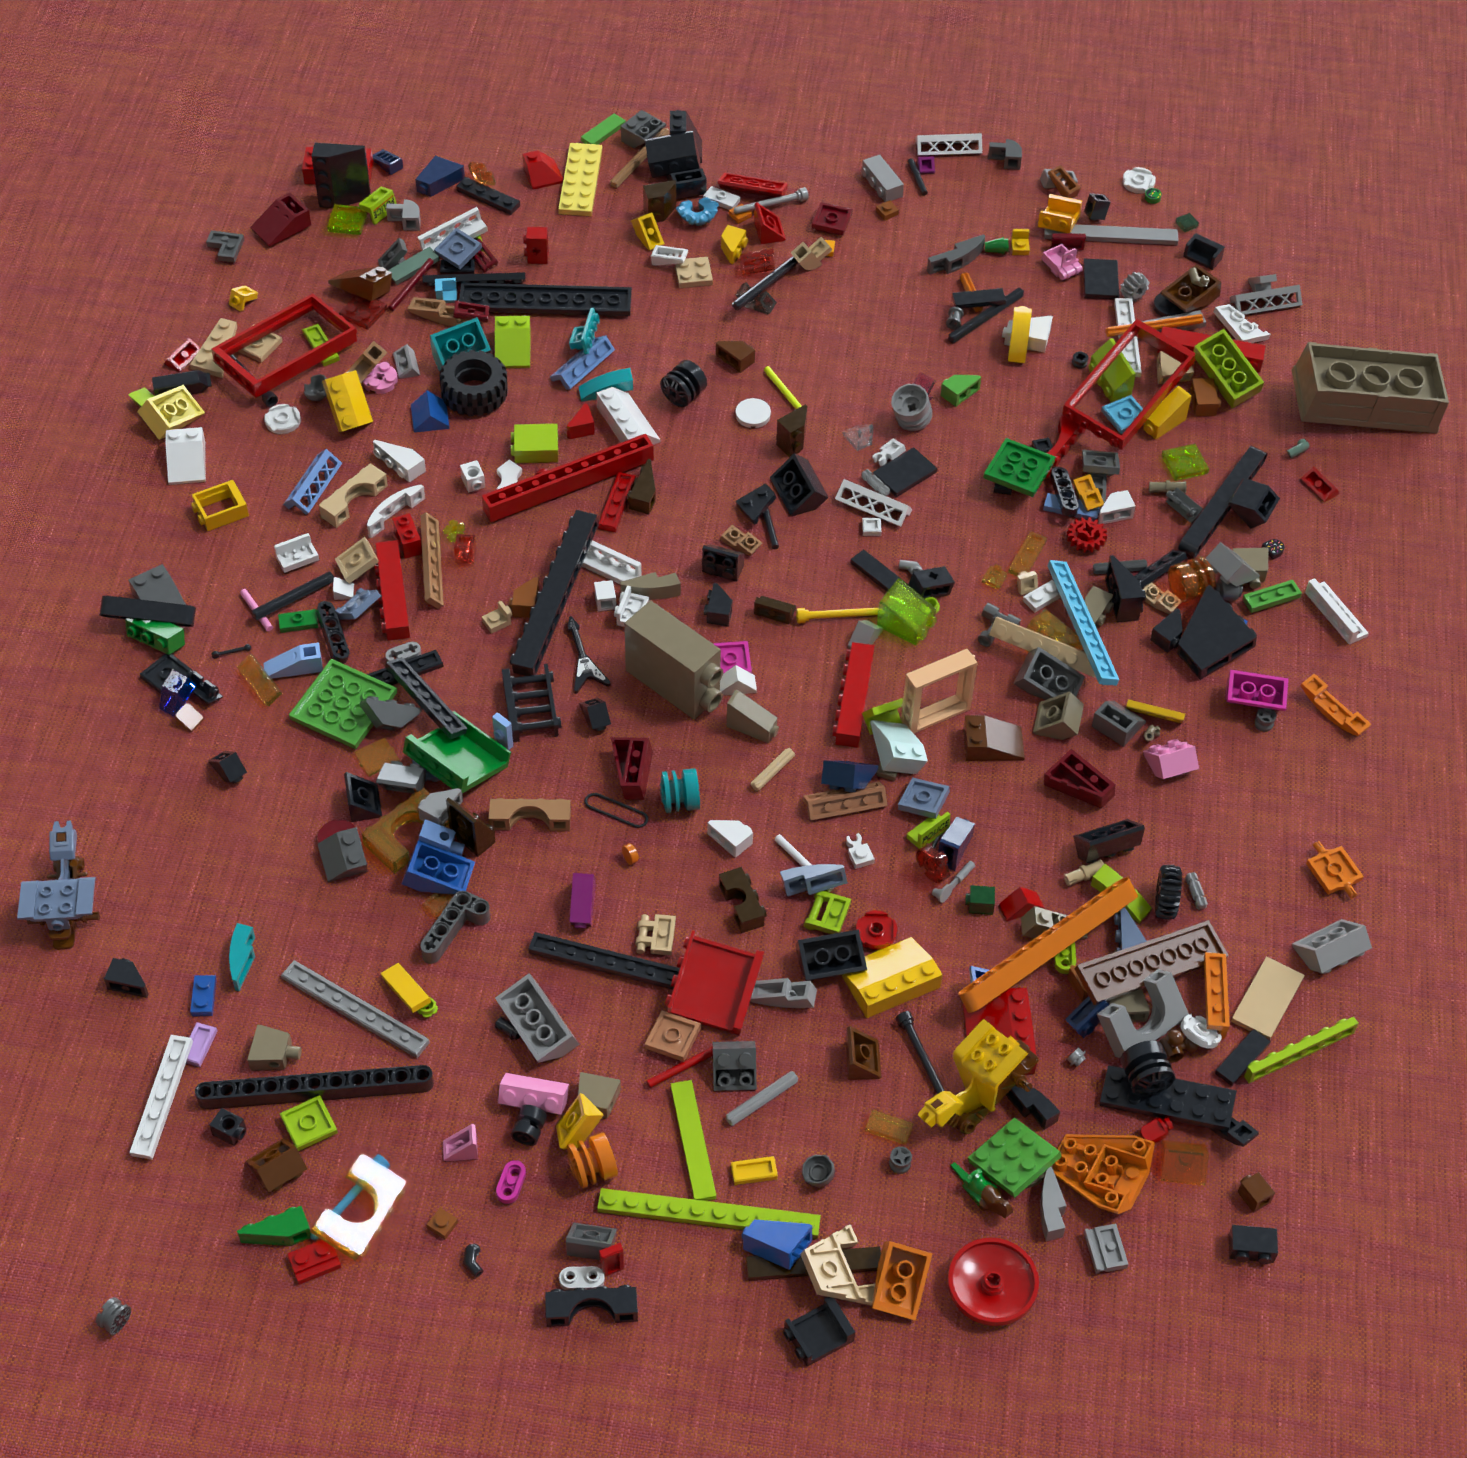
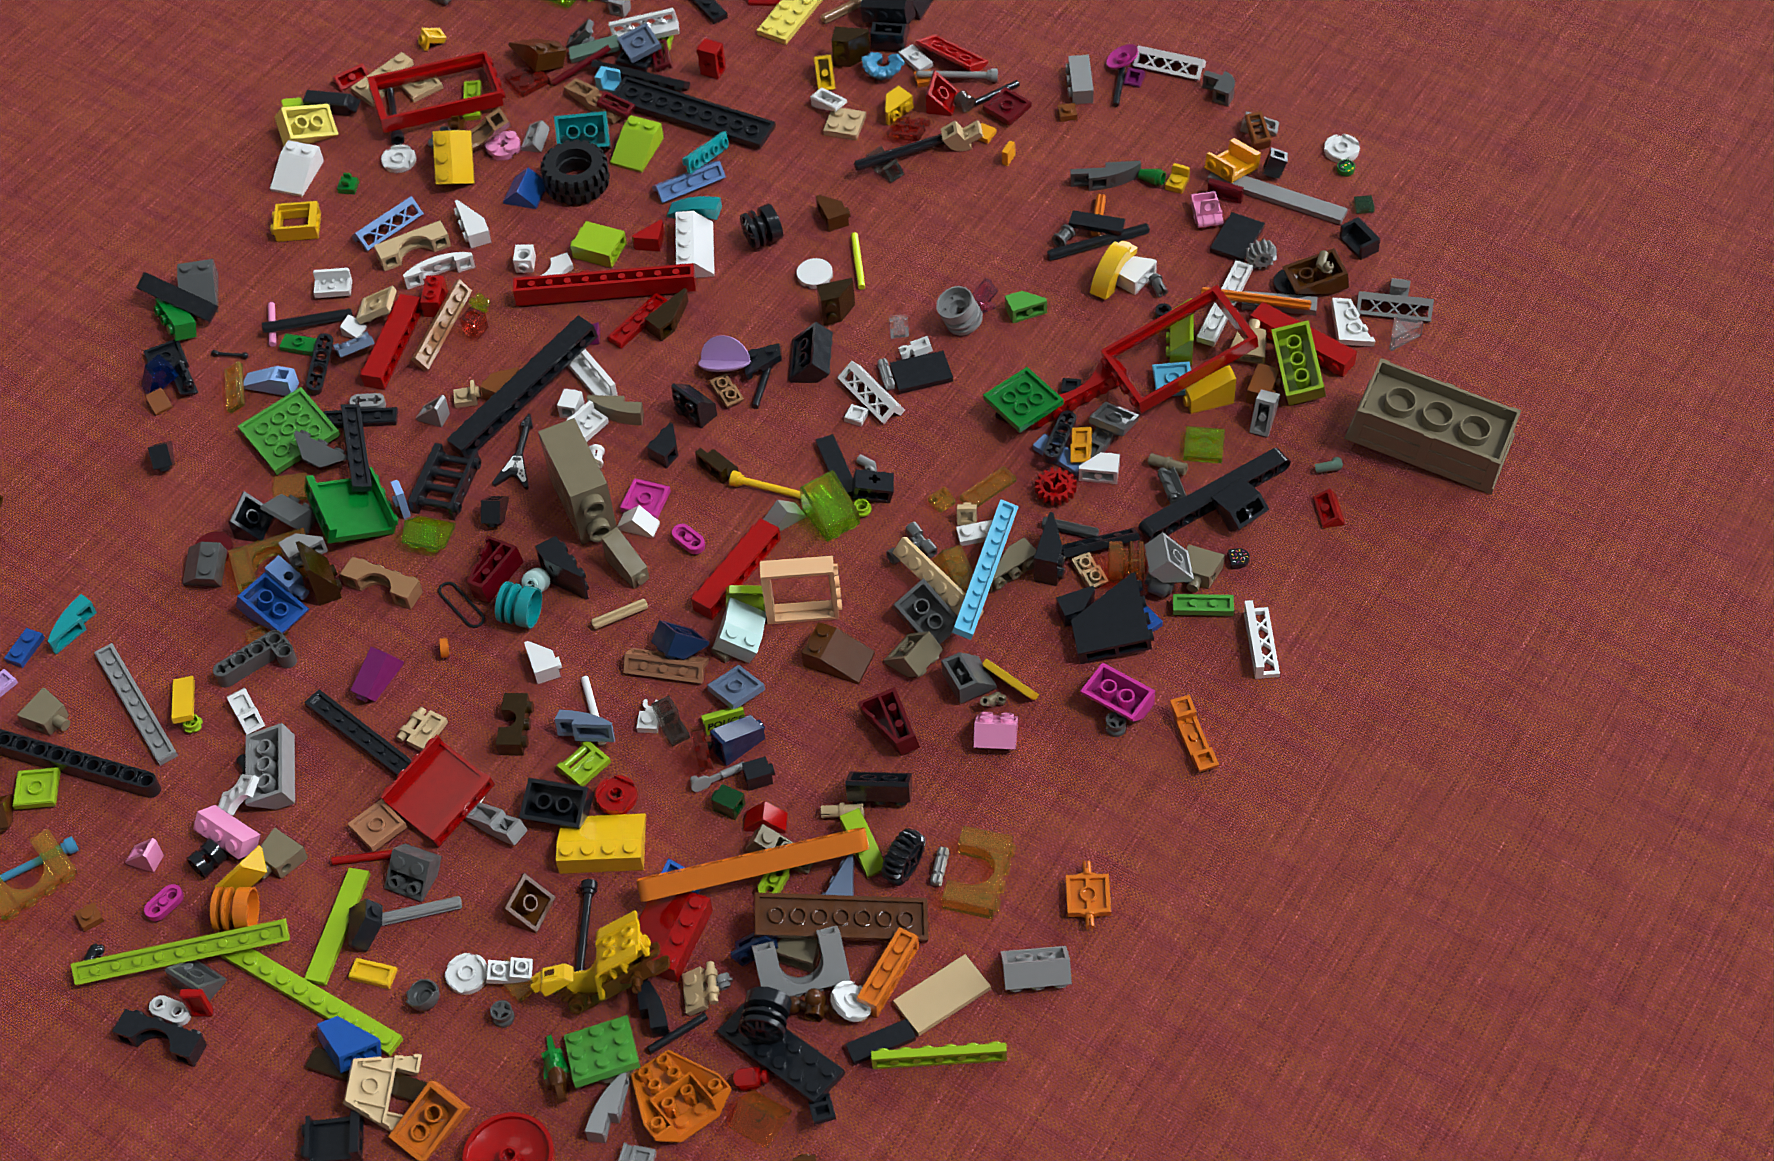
camera: 30 degrees right, 0 degrees up
(247, 456) = (348, 184): none -> green tile
(322, 369) = (456, 124): none -> reddish brown tile
(475, 980) = (245, 711): none -> white slope
(476, 642) = (434, 412): none -> light grey slope
(529, 1046) = (241, 791): none -> white tile
(545, 755) = (427, 533): none -> clear neon green slope
(563, 1220) = (180, 951): none -> lime plate
(679, 759) = (536, 578): none -> light aqua head
(700, 745) = (562, 567): none -> black slope
(722, 508) = (723, 355): none -> lavender piece
(722, 1127) = (364, 924): none -> black slope
(792, 224) = (964, 101): none -> clear smoke wheel
(793, 682) = (691, 542): none -> dark pink plate
(812, 210) = (988, 96): none -> black bar
(842, 1137) = (466, 974): none -> white tile
(860, 259) = (1008, 153): none -> light orange tile
(879, 844) = (670, 721): none -> clear smoke slope
(886, 1119) = (508, 972): none -> white slope
(907, 149) = (1122, 56): none -> dark pink dish
(991, 866) = (758, 773): none -> black brick
(1059, 1074) = (695, 989): none -> tan plate
(1061, 337) = (1156, 281): none -> dark grey pin
(1064, 1117) = (677, 1033): none -> black bar
(1222, 419) = (1264, 412): none -> light grey slope
(1238, 860) = (983, 898): none -> clear yellow arch
(1287, 318) = (1404, 331): none -> clear slope

